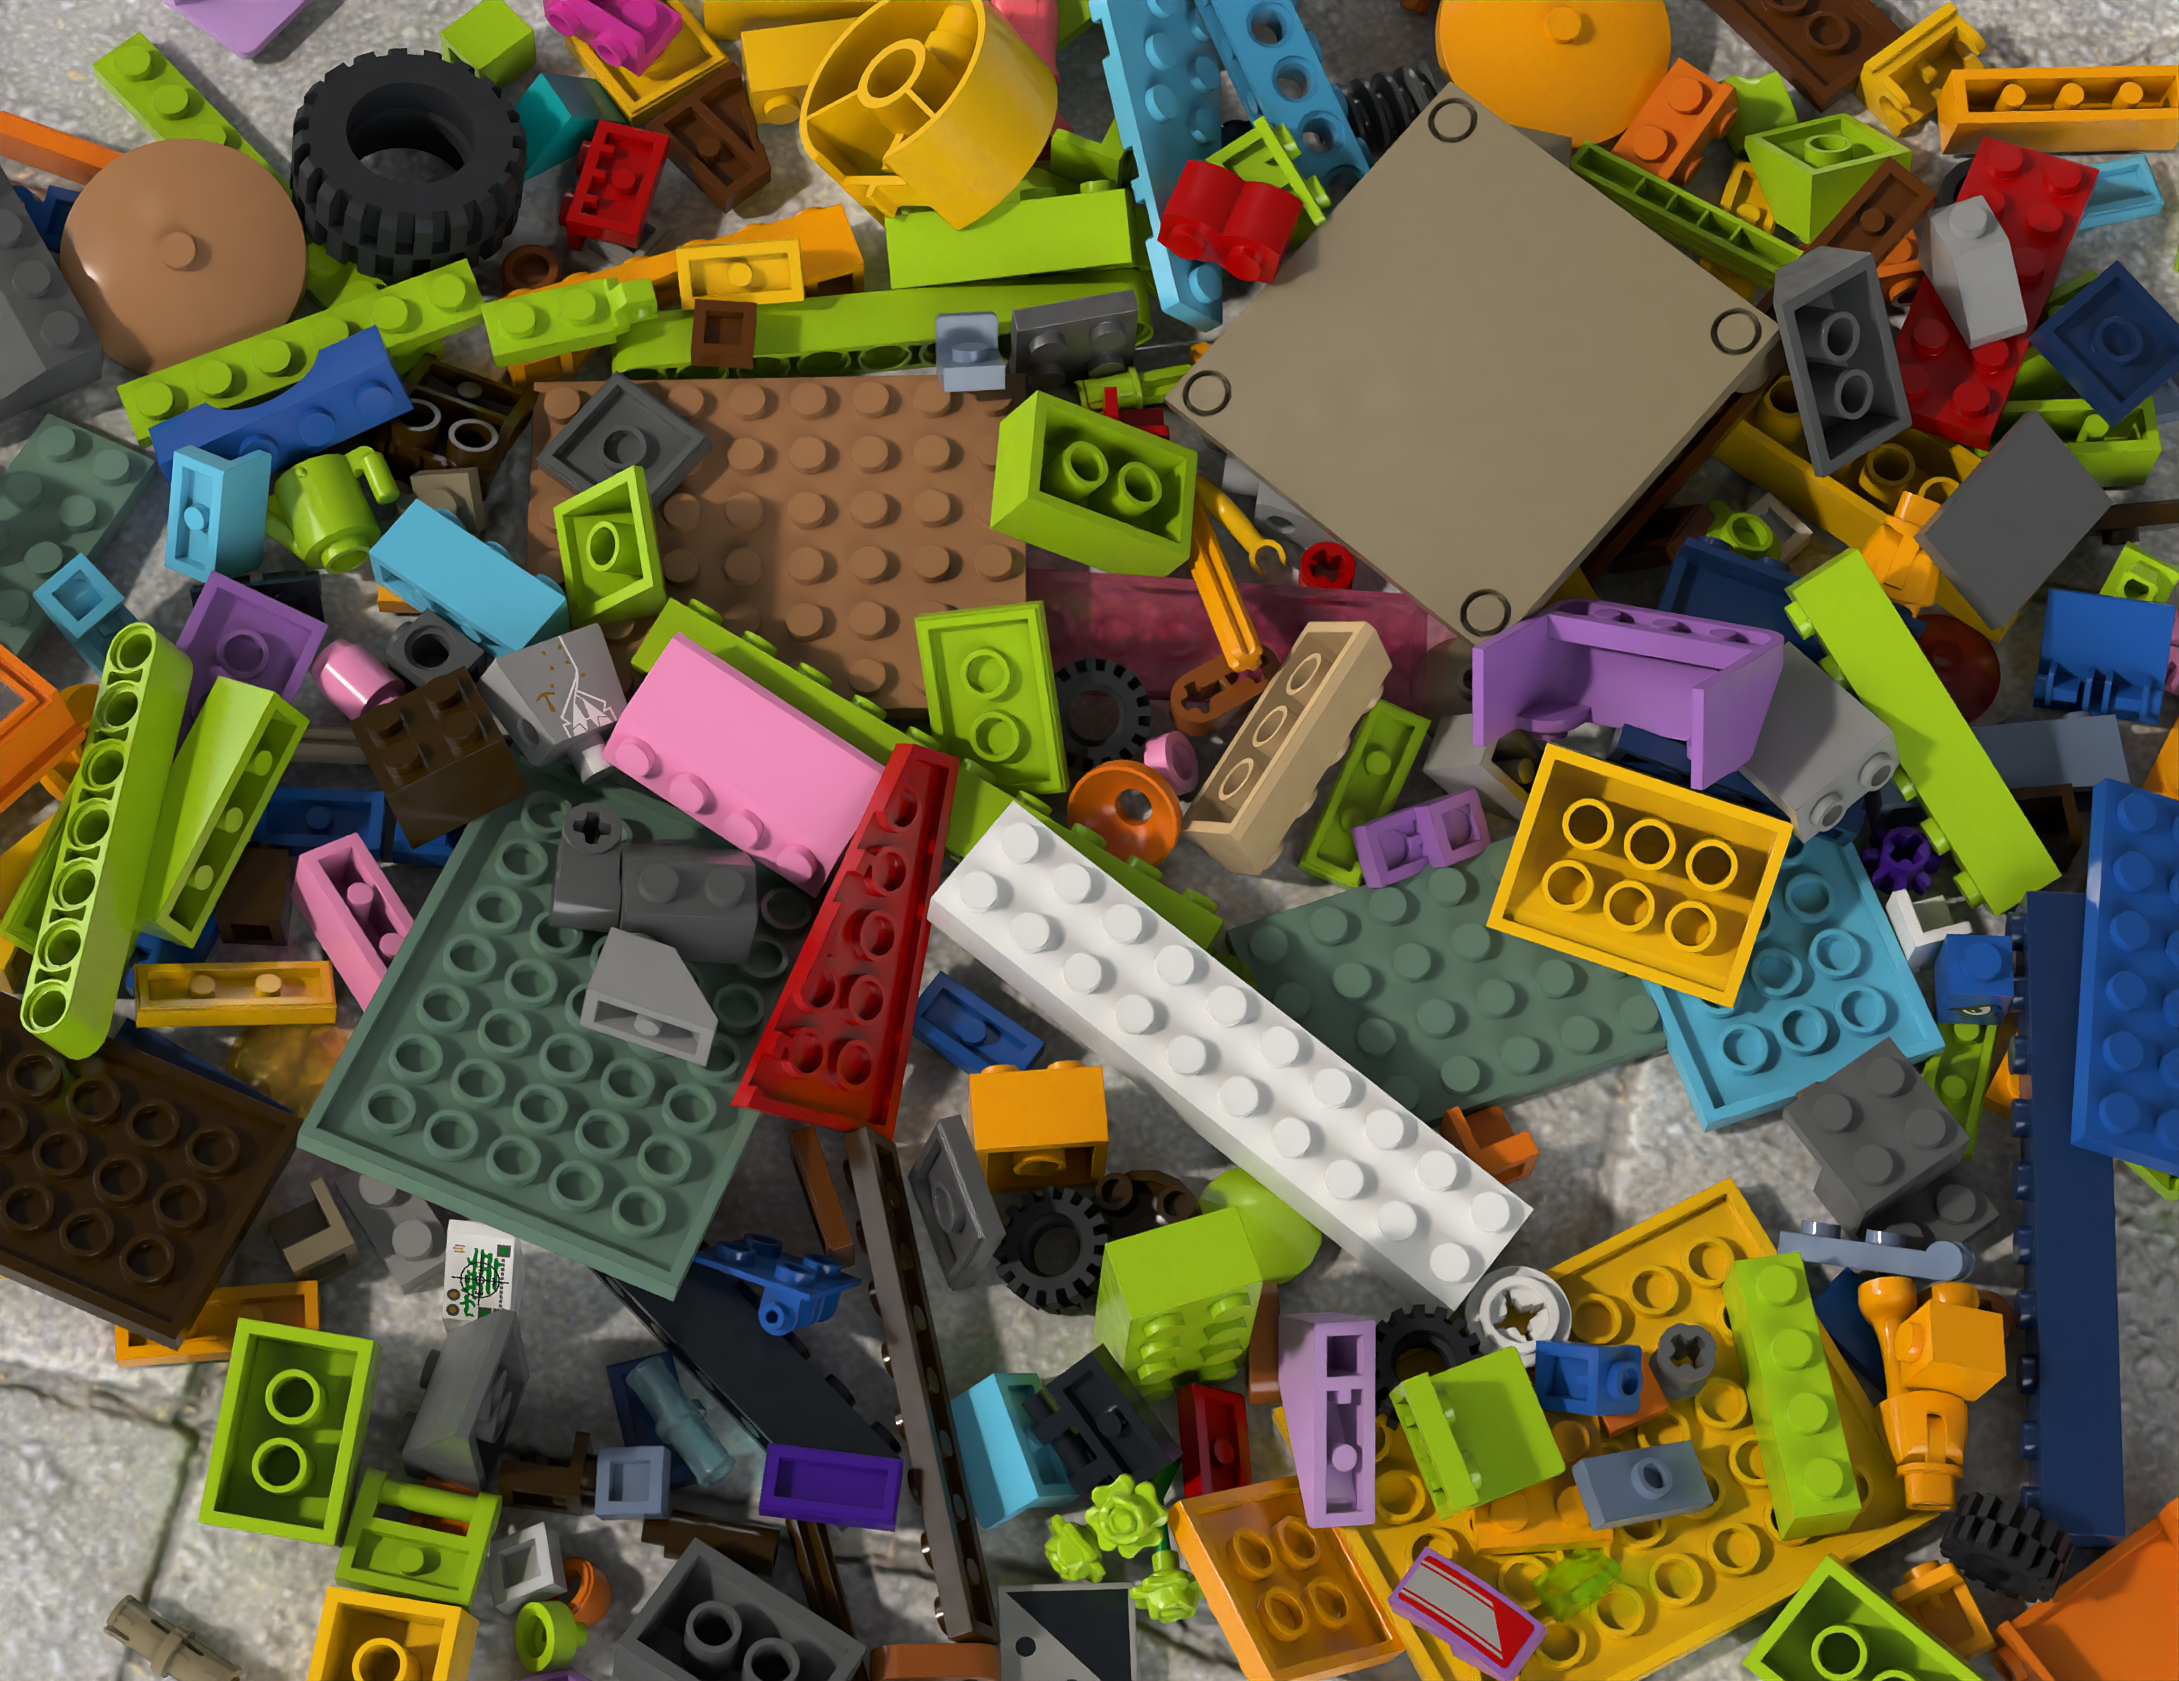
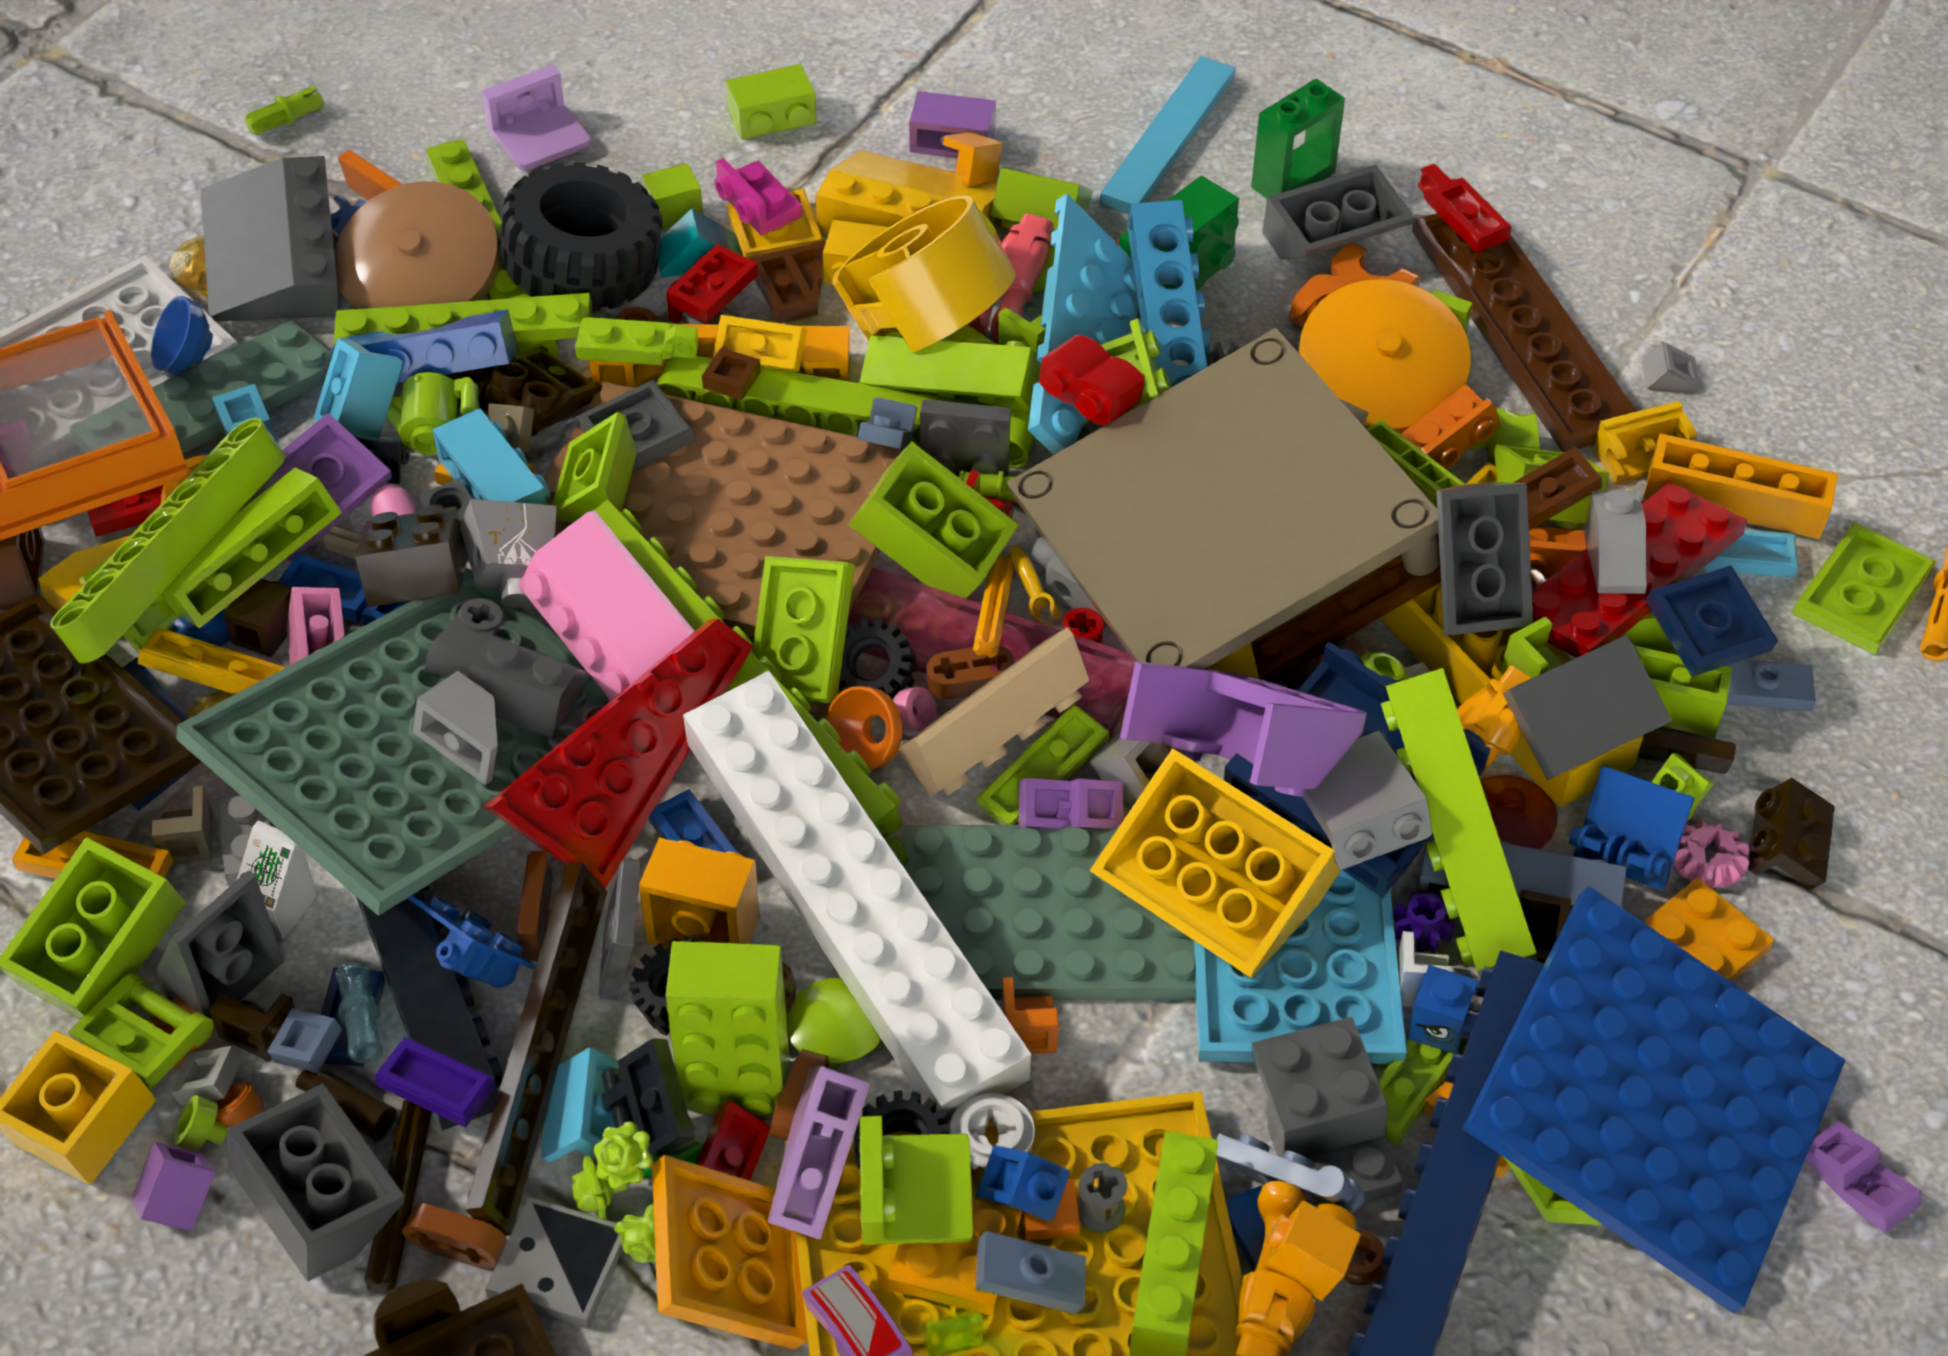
camera: 25 degrees right, 15 degrees down
(1924, 467) = (1529, 651): none -> lime panel

